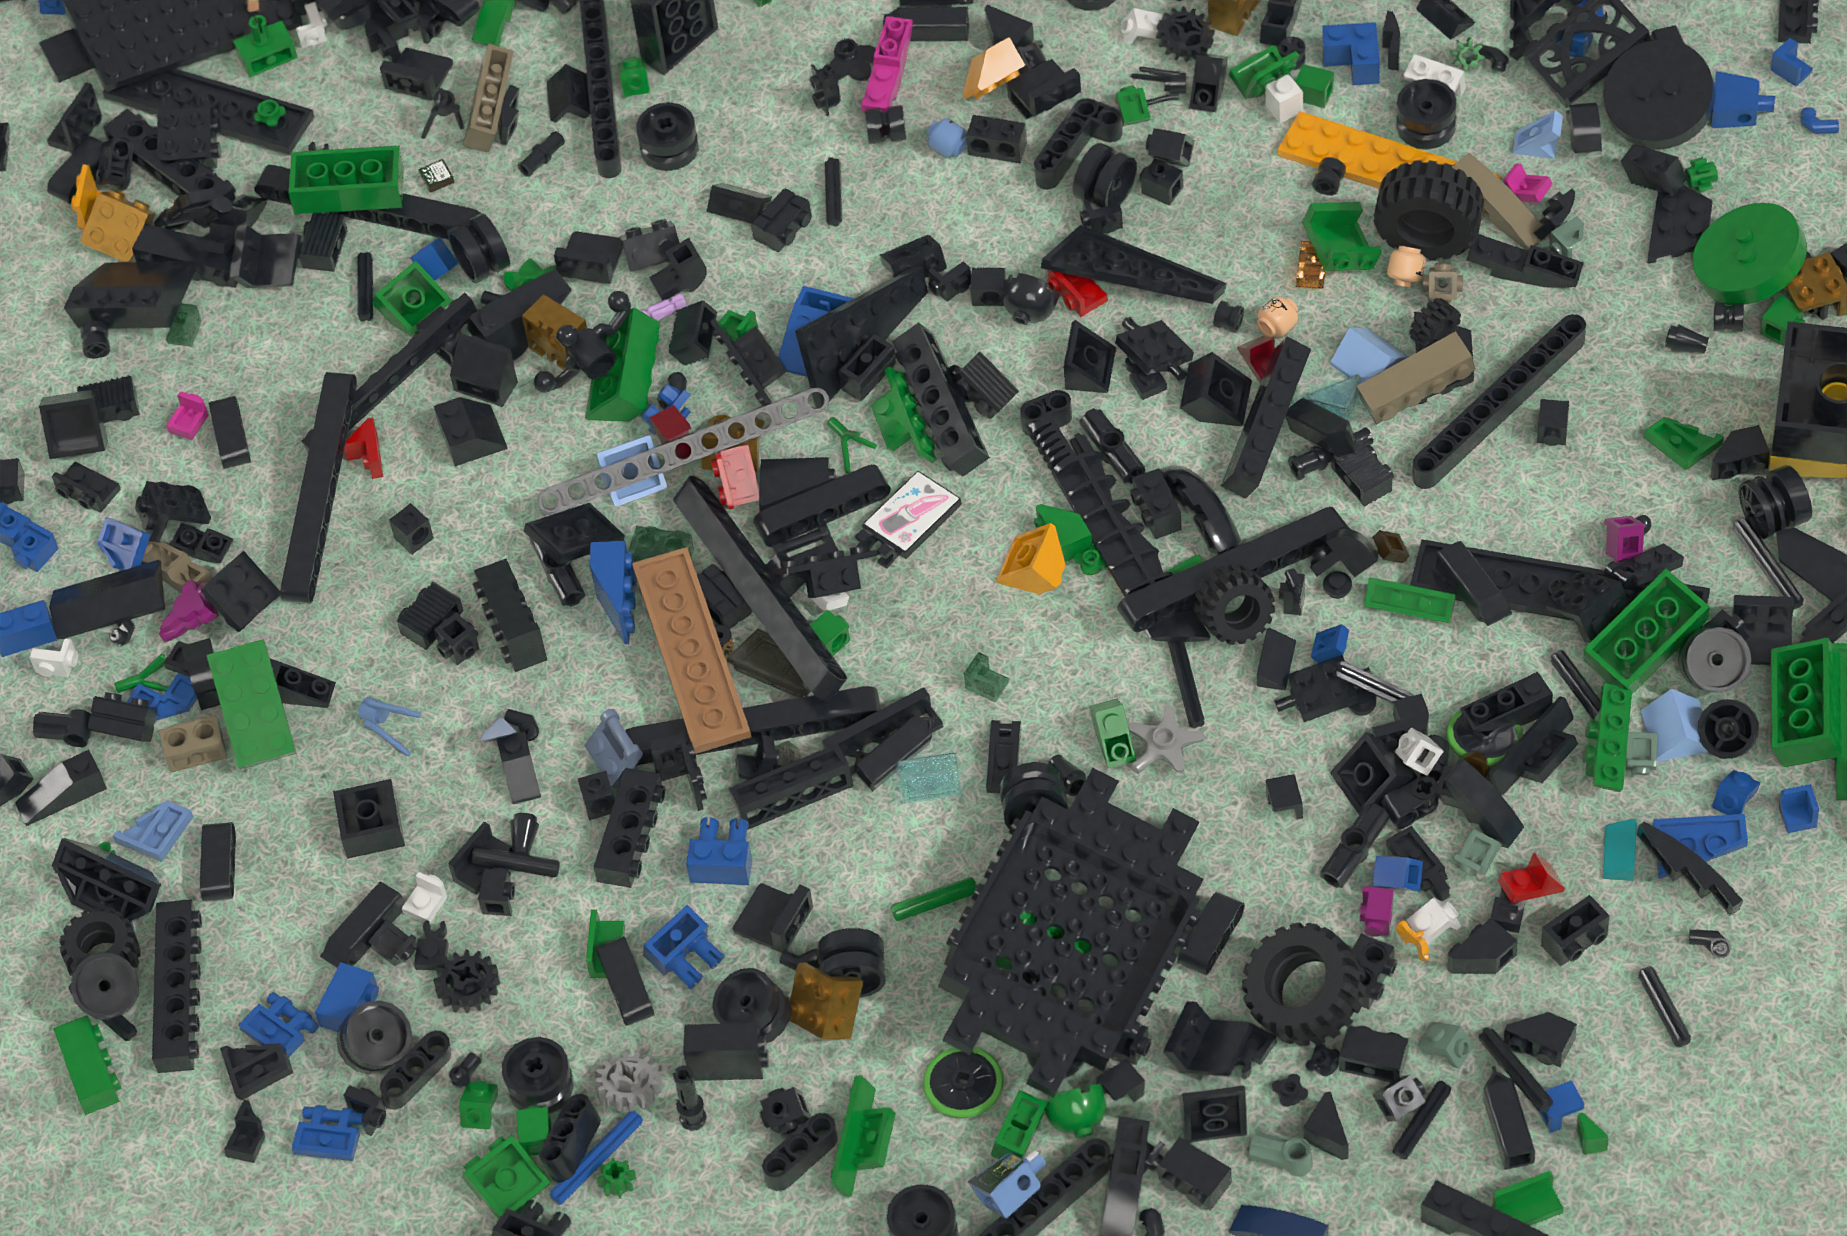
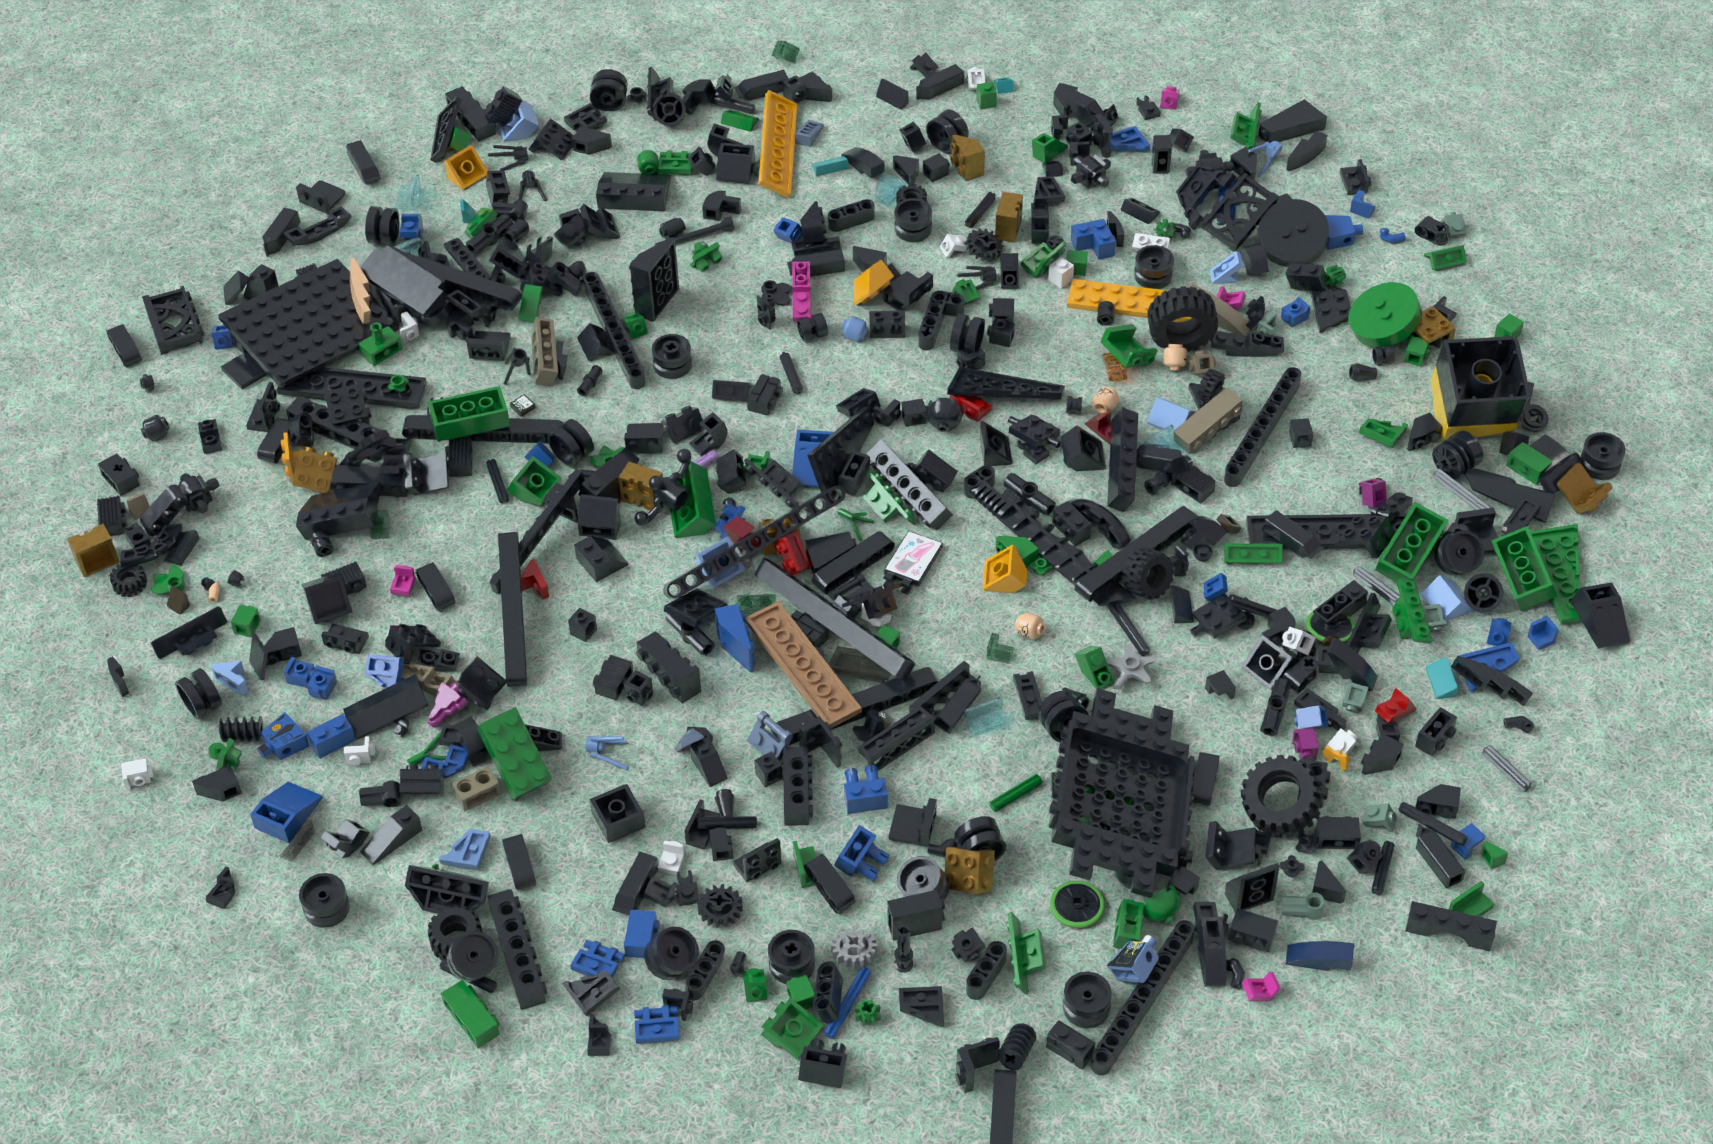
camera: 20 degrees left, 5 degrees down
(541, 928) = (759, 860): none -> black bracket
(697, 1181) = (923, 1003): none -> black wing
(1040, 651) = (1030, 626): none -> light nougat head
(1618, 224) = (1295, 312): none -> blue brick

